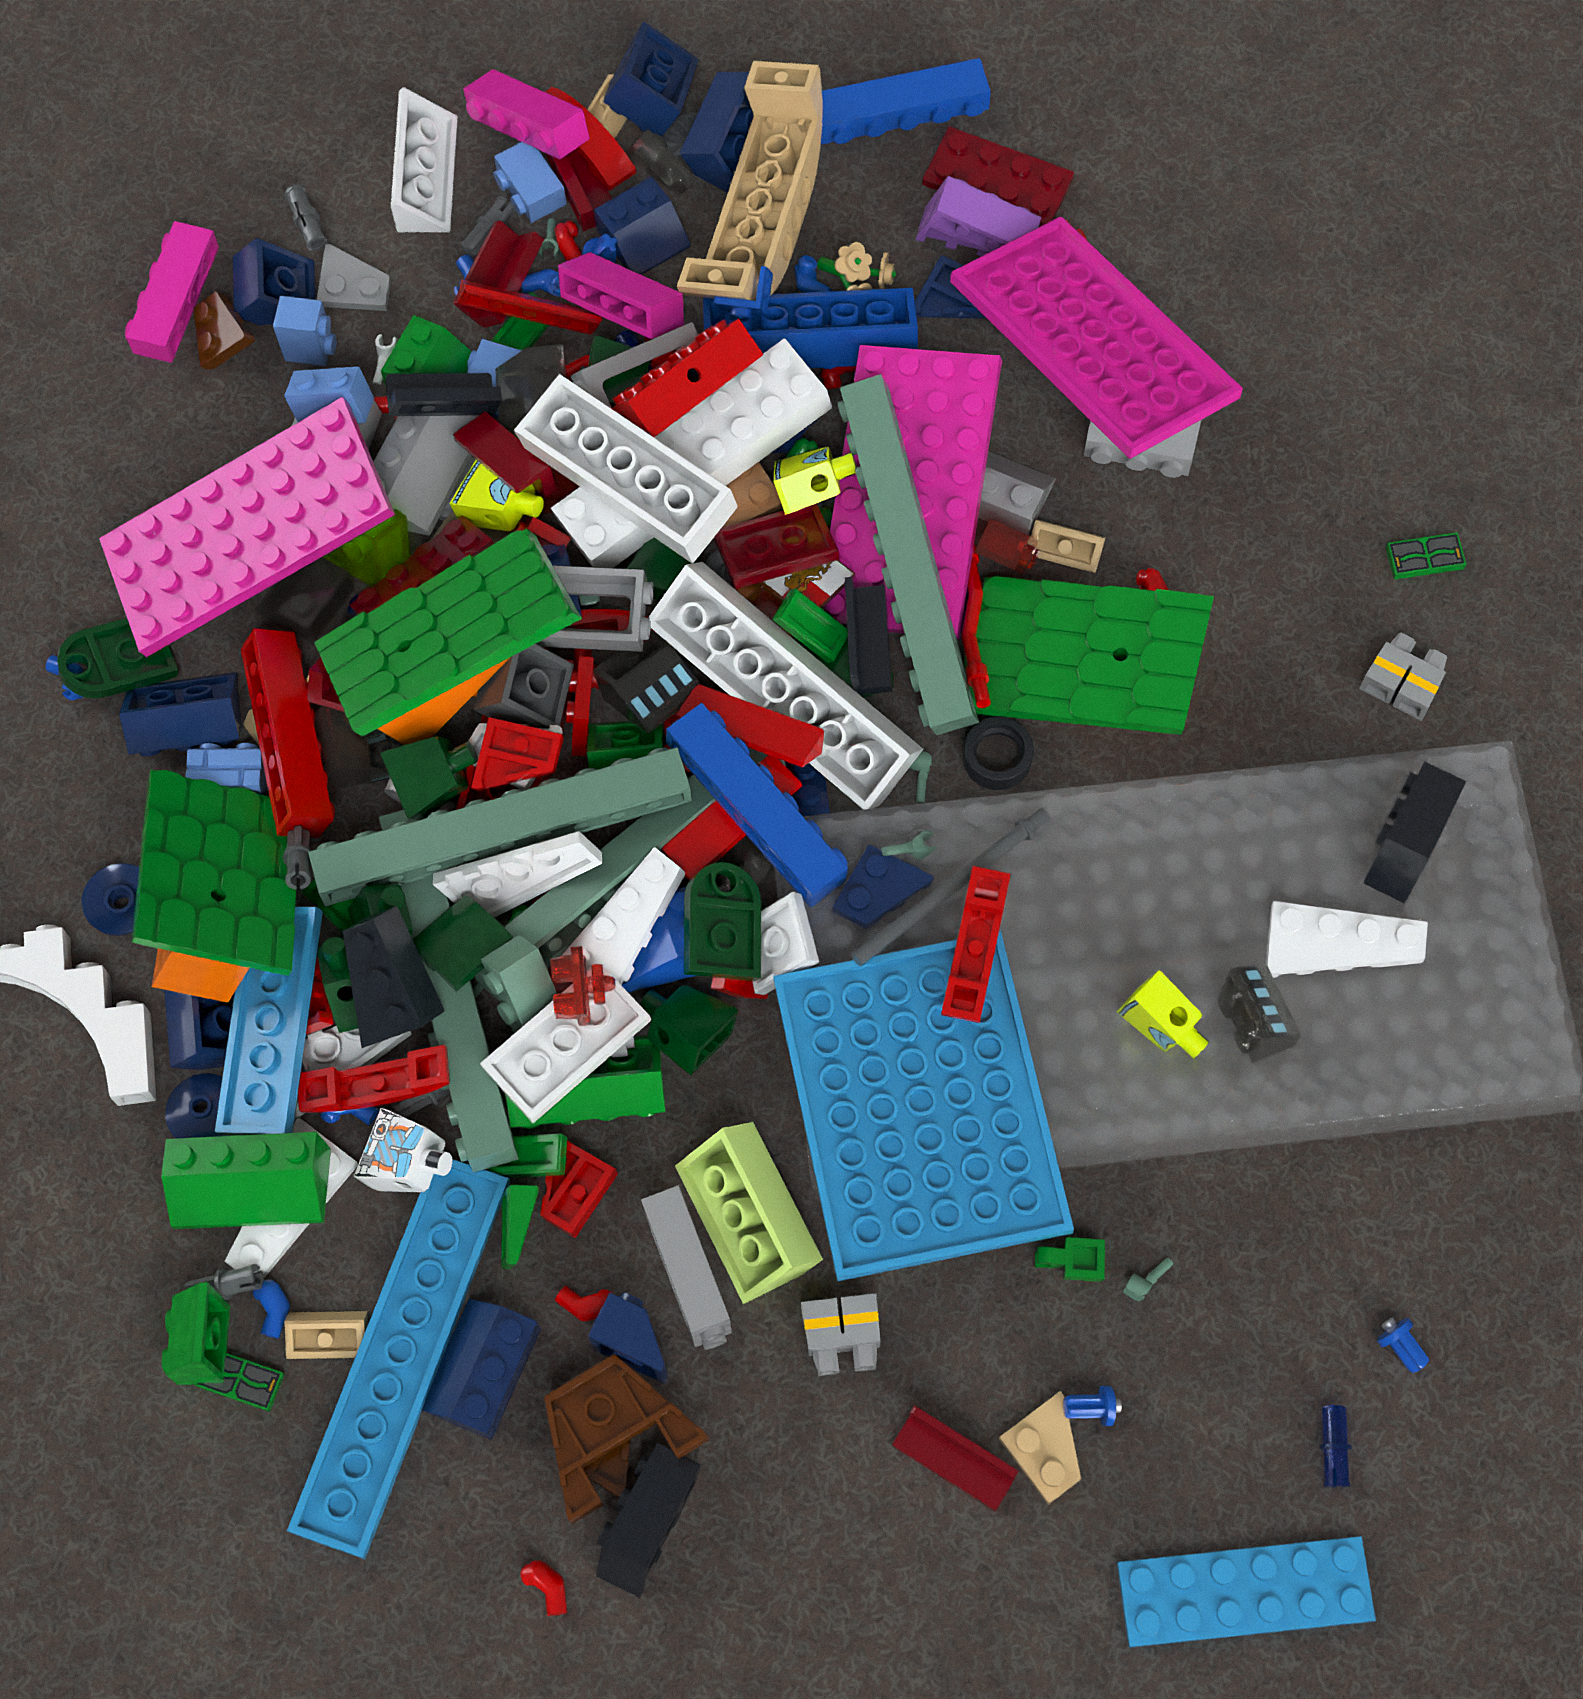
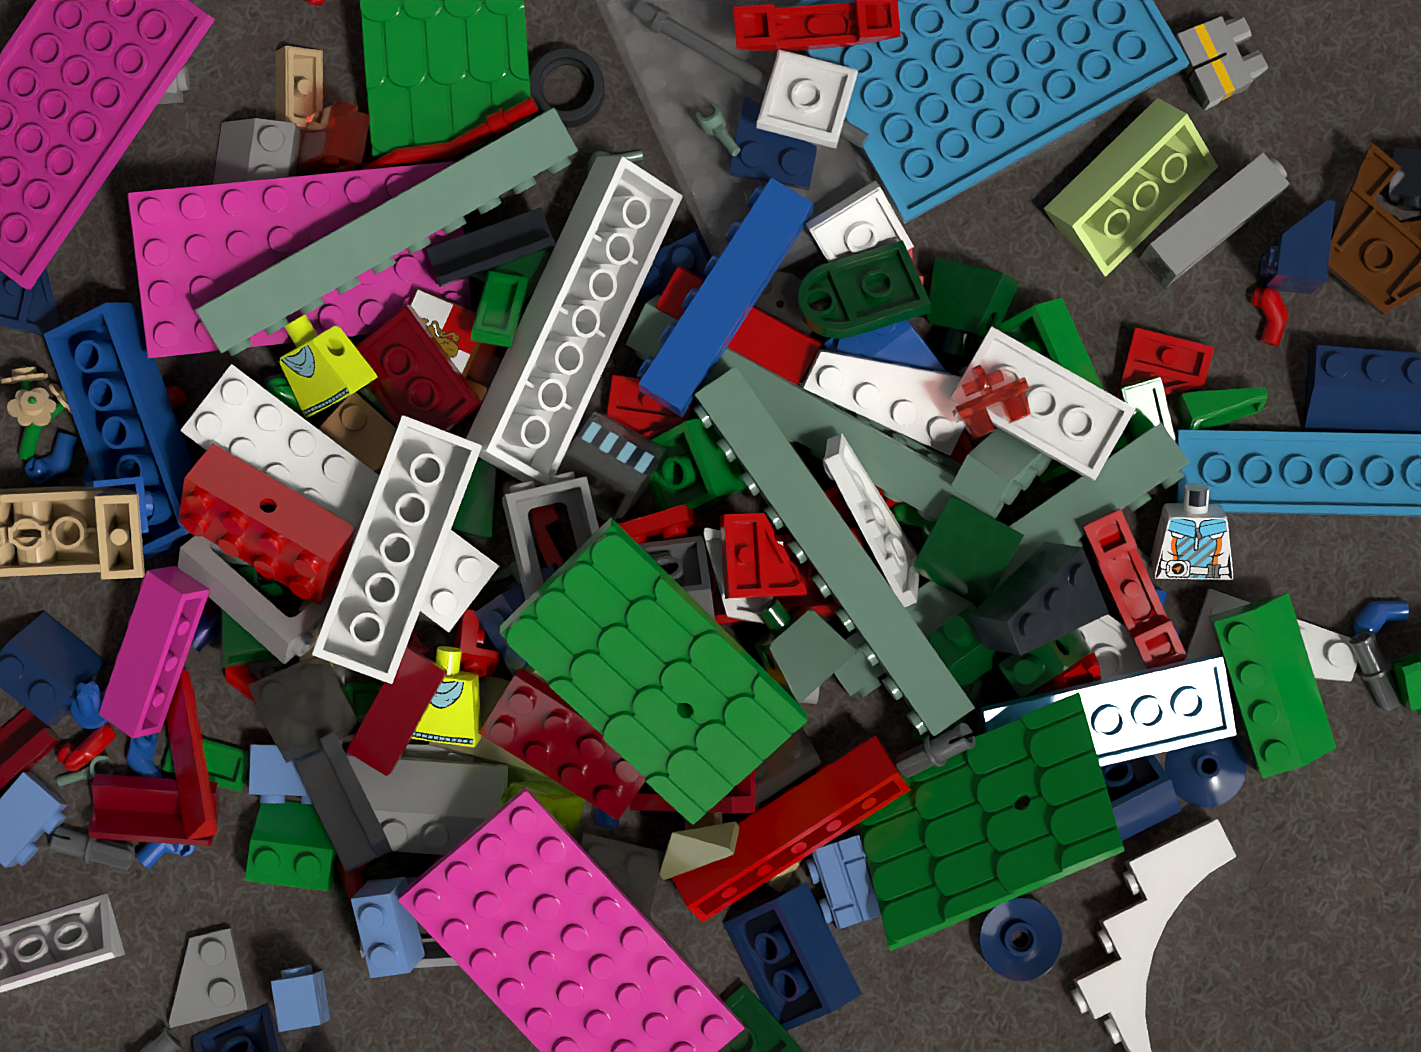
camera: 110 degrees left, 15 degrees up
(297, 652) = (698, 847): none -> olive slope
(324, 1334) = (1383, 556): tan slope -> none
(383, 353) = (297, 906): white hand -> none
(760, 727) = (632, 334): red slope -> none
(909, 919) = (807, 99): none -> white tile

